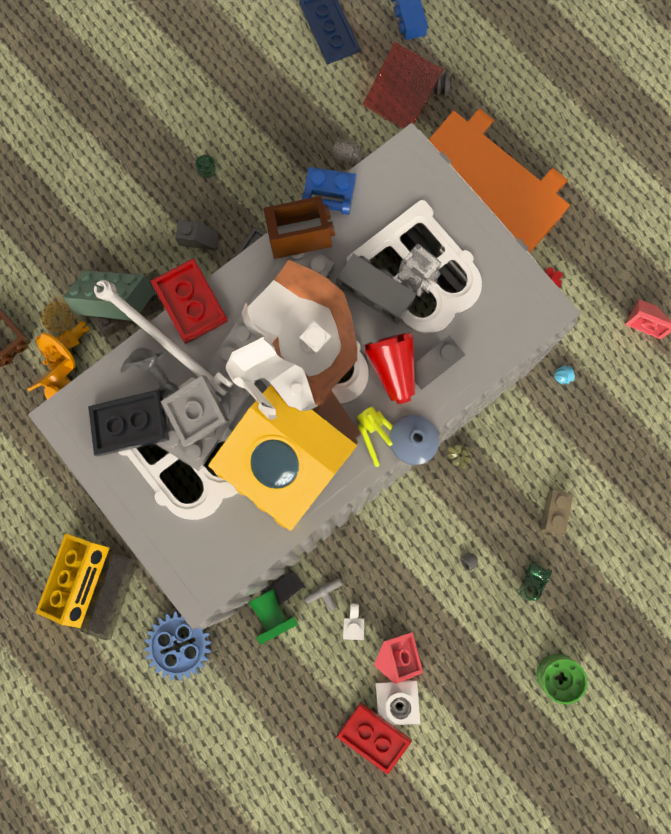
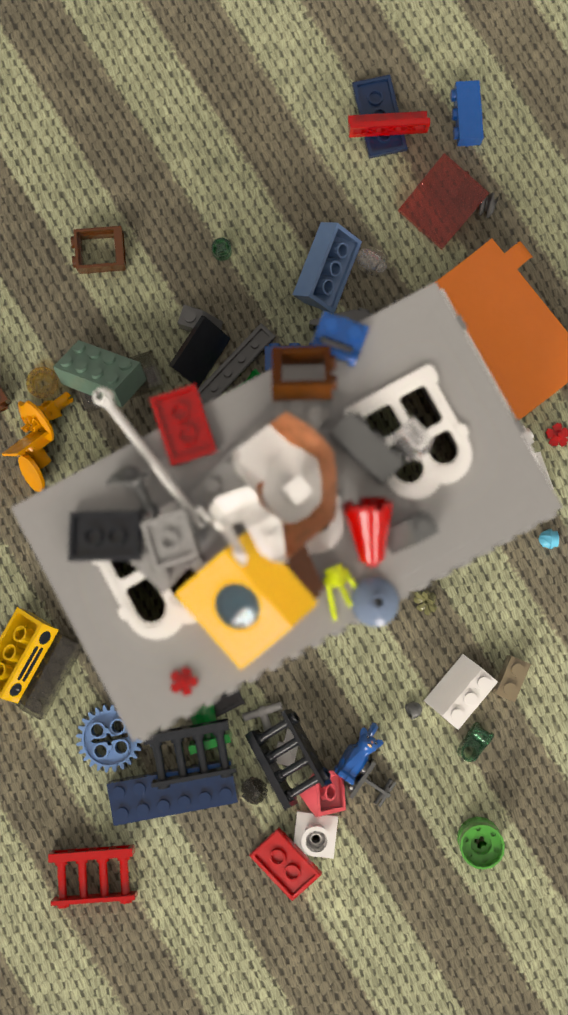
camera: 10 degrees right, 5 degrees up
(85, 172) = (98, 233): none -> reddish brown window
(169, 771) = (102, 856): none -> red fence
(206, 251) = (199, 351): none -> black tile
(234, 557) = (182, 681): none -> red plant
(243, 629) = (197, 733): none -> black fence
(248, 687) = (135, 800): none -> dark blue brick
(307, 148) = (327, 267): none -> medium blue slope
(329, 670) = (254, 790): none -> clear smoke gear
(337, 635) = (268, 758): none -> black fence
(338, 29) = (388, 124): none -> red fence
(423, 615) = (357, 754): none -> blue animal
(428, 643) = (366, 770): none -> dark grey plate
(511, 534) = (460, 691): none -> white slope

